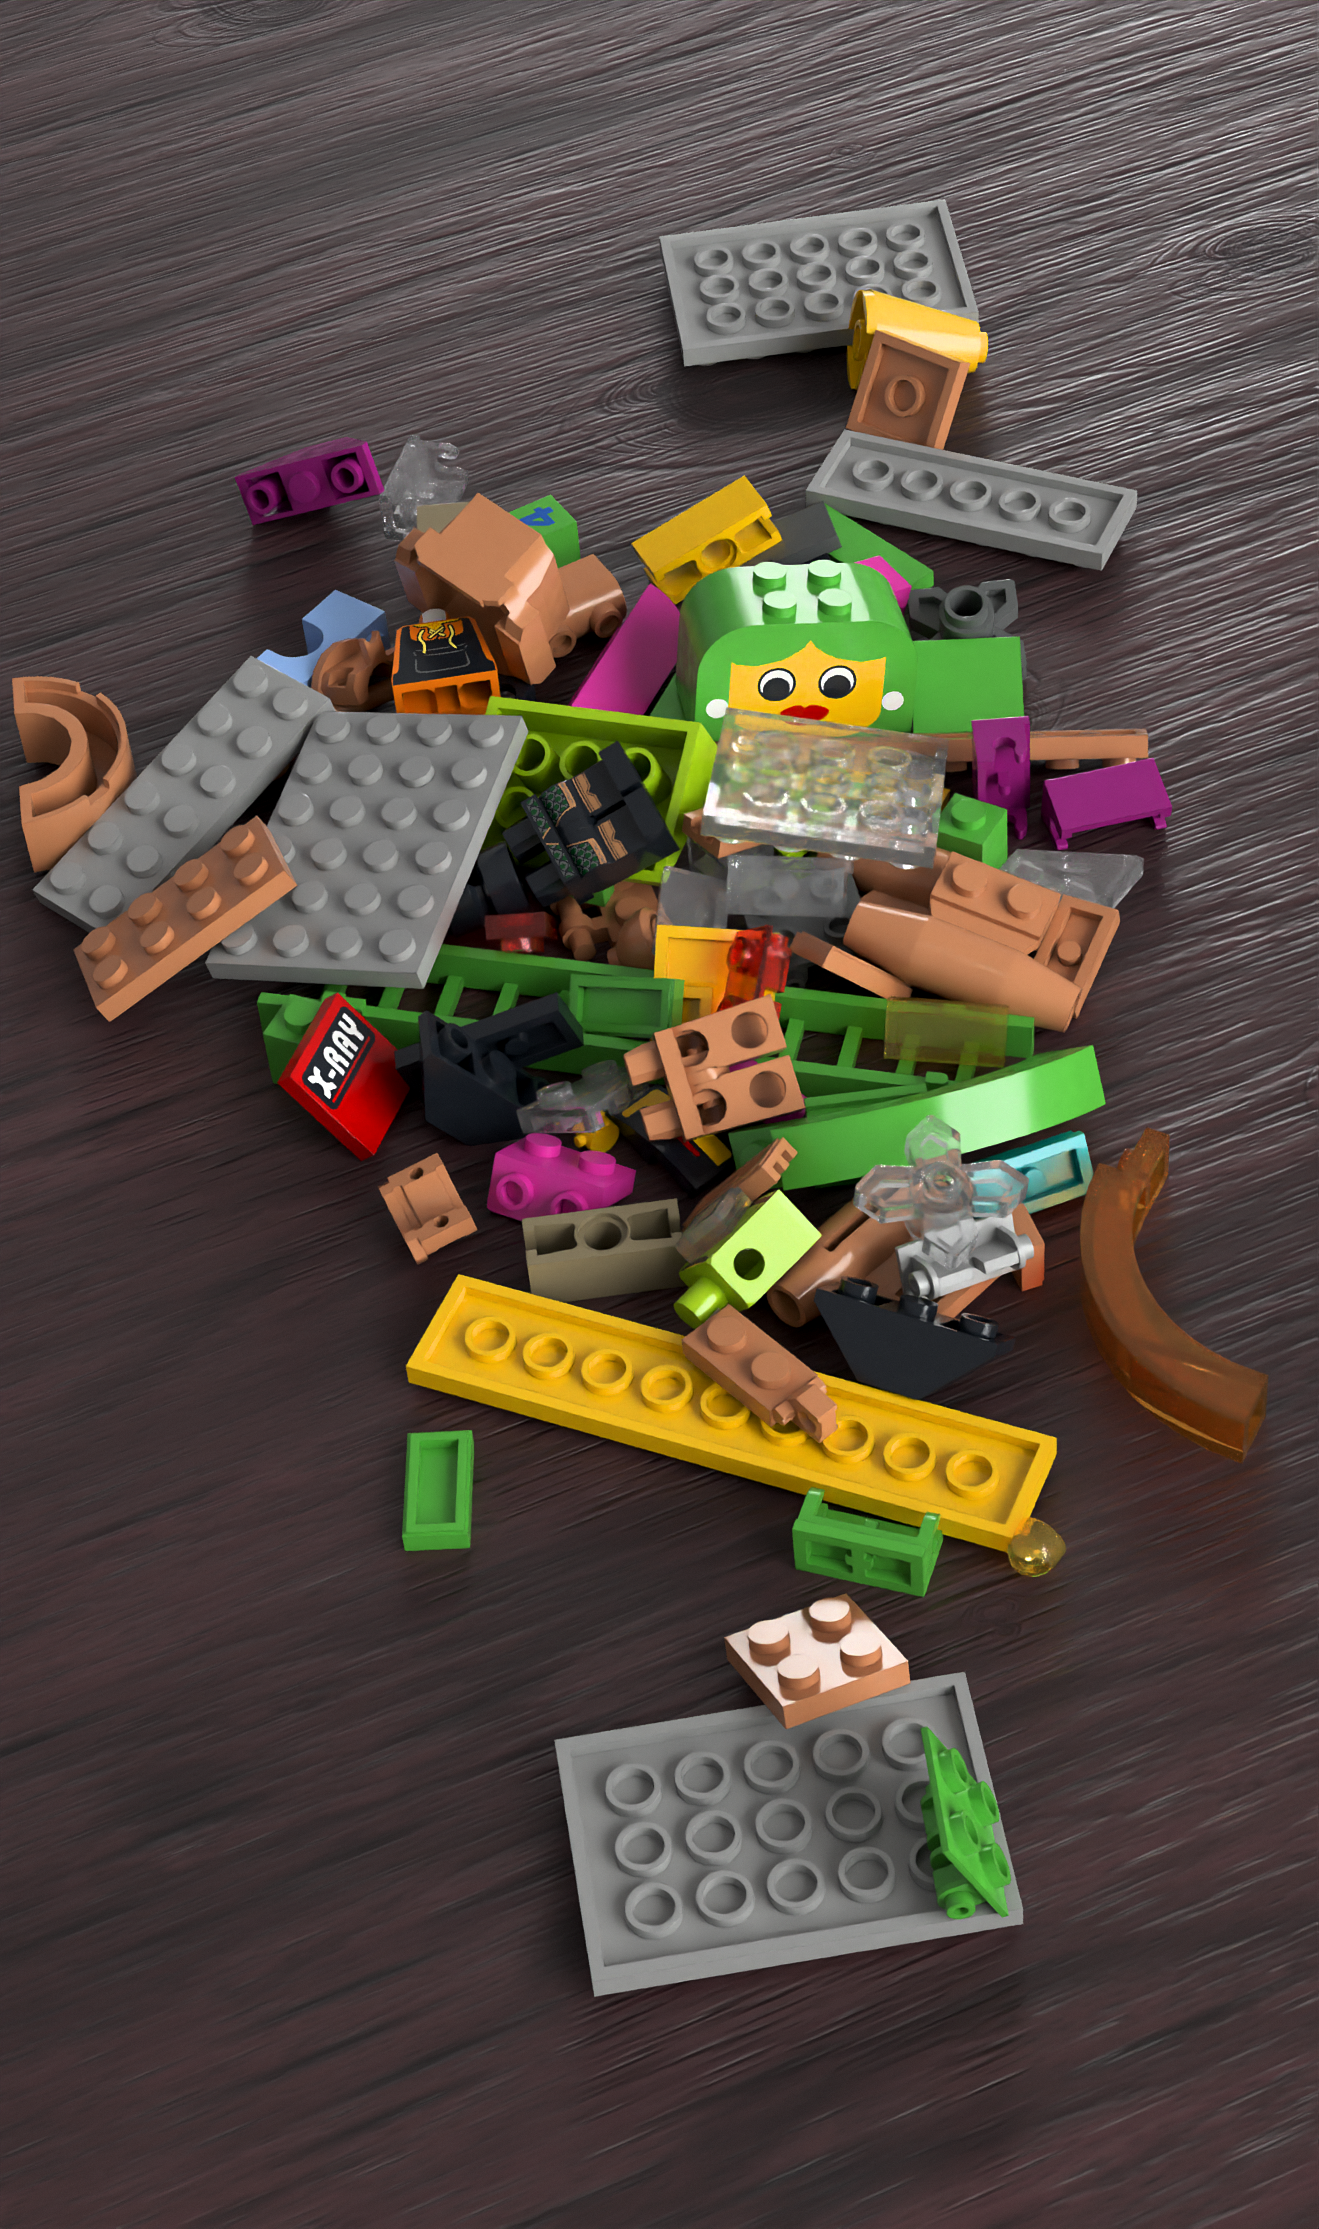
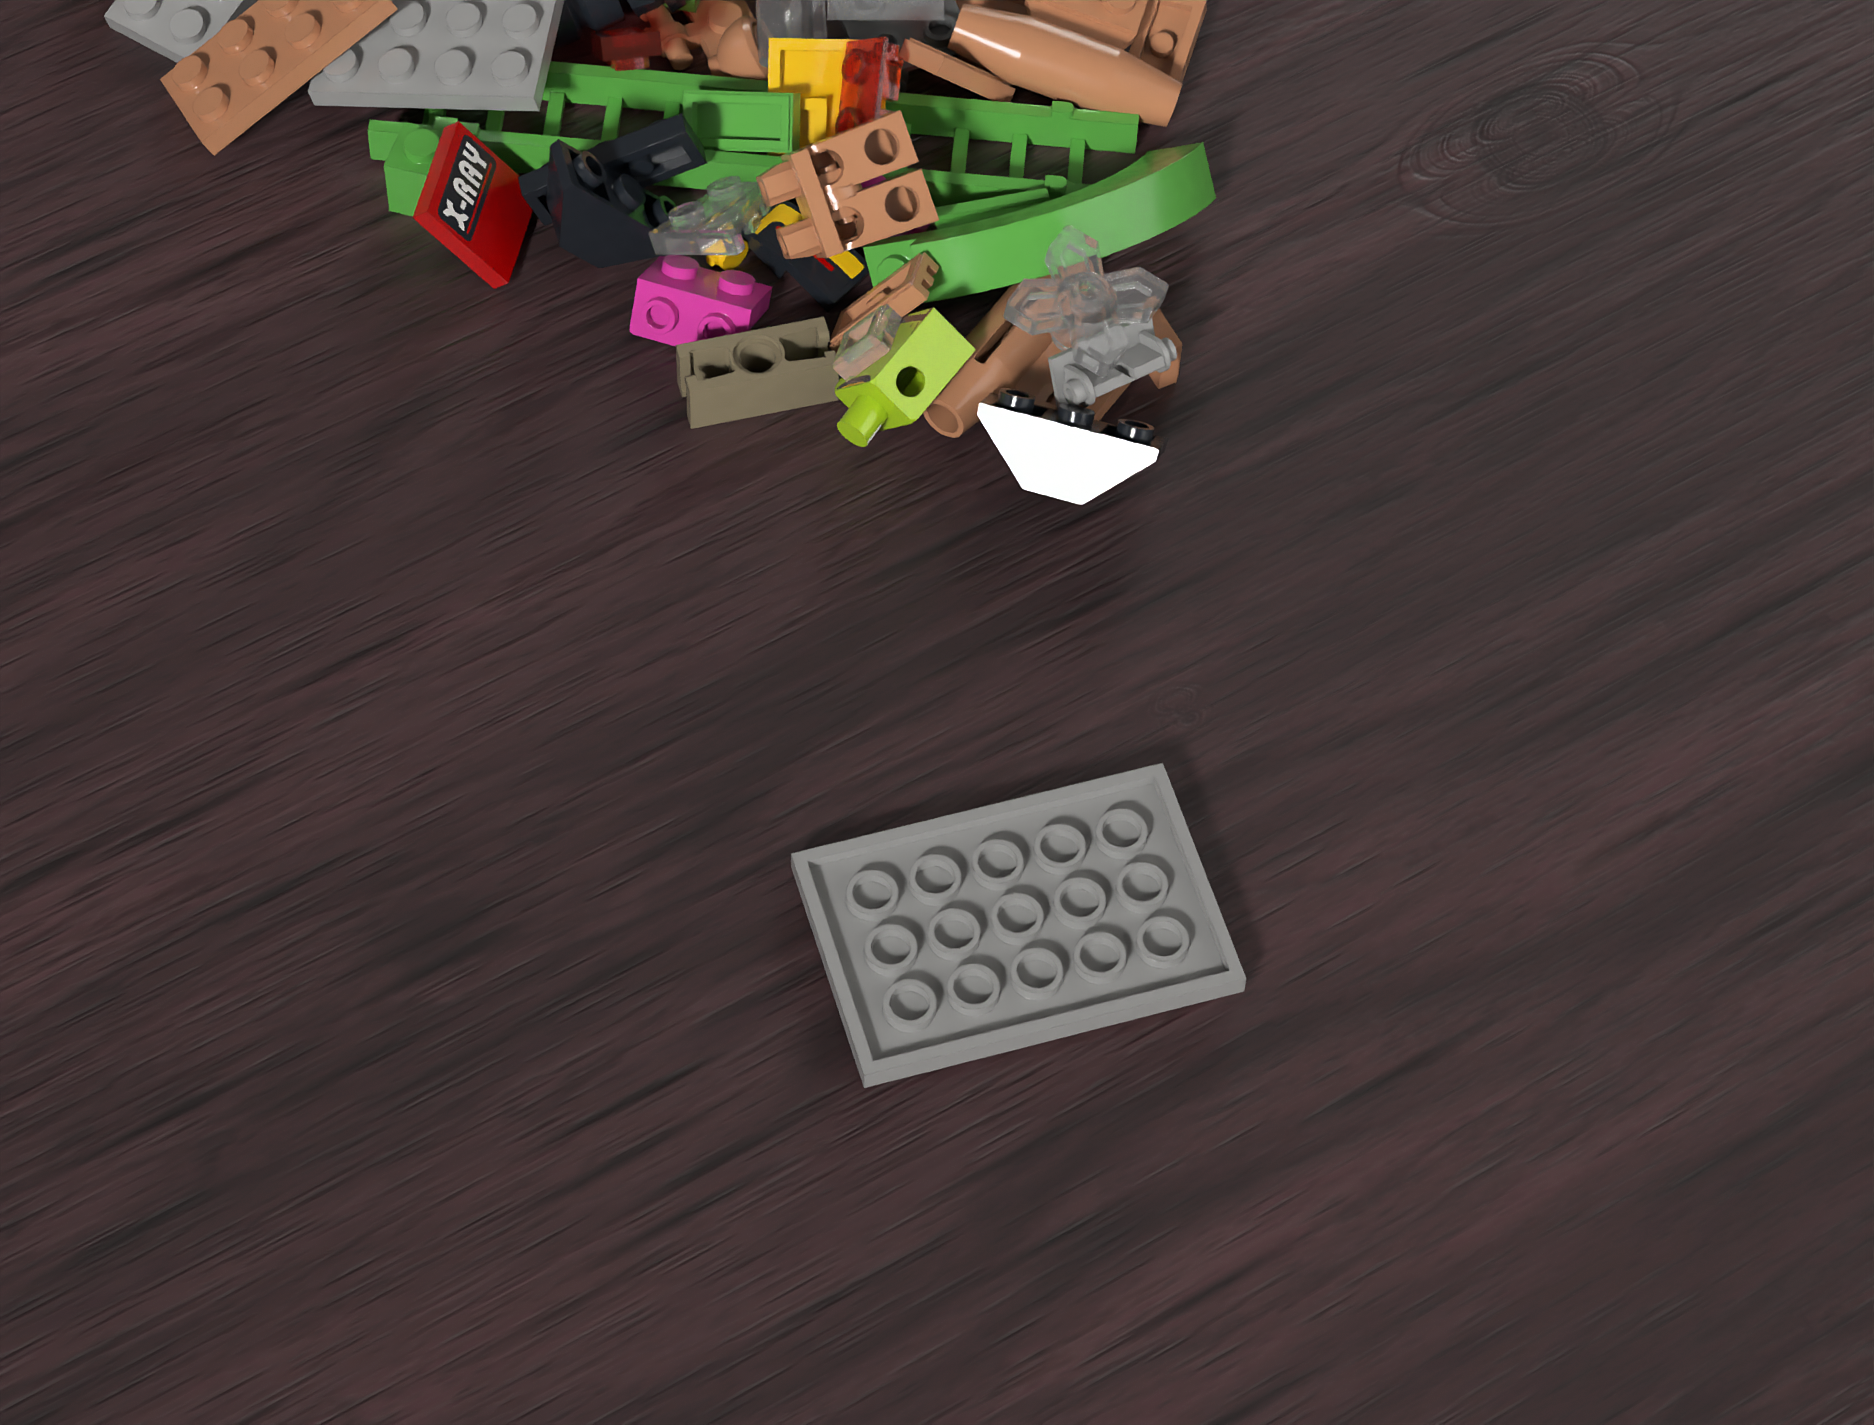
camera: 15 degrees left, 10 degrees up
(426, 1207) = (575, 337): nougat piece -> none
(438, 1490) = (633, 618): bright green tile -> none
(640, 1390) = (901, 524): yellow plate -> none
(761, 1373) = (931, 487): nougat hinge -> none
(816, 1660) = (1024, 761): nougat plate -> none
(865, 1548) = (1050, 650): bright green hinge -> none
(946, 1031) = (1056, 132): clear yellow tile -> none
(960, 1834) = (1181, 914): bright green hinge -> none
(1035, 1548) = (1208, 640): clear yellow hinge -> none
(1055, 1166) = (1179, 261): plate -> none
(1150, 1355) = (1275, 431): clear orange arch -> none

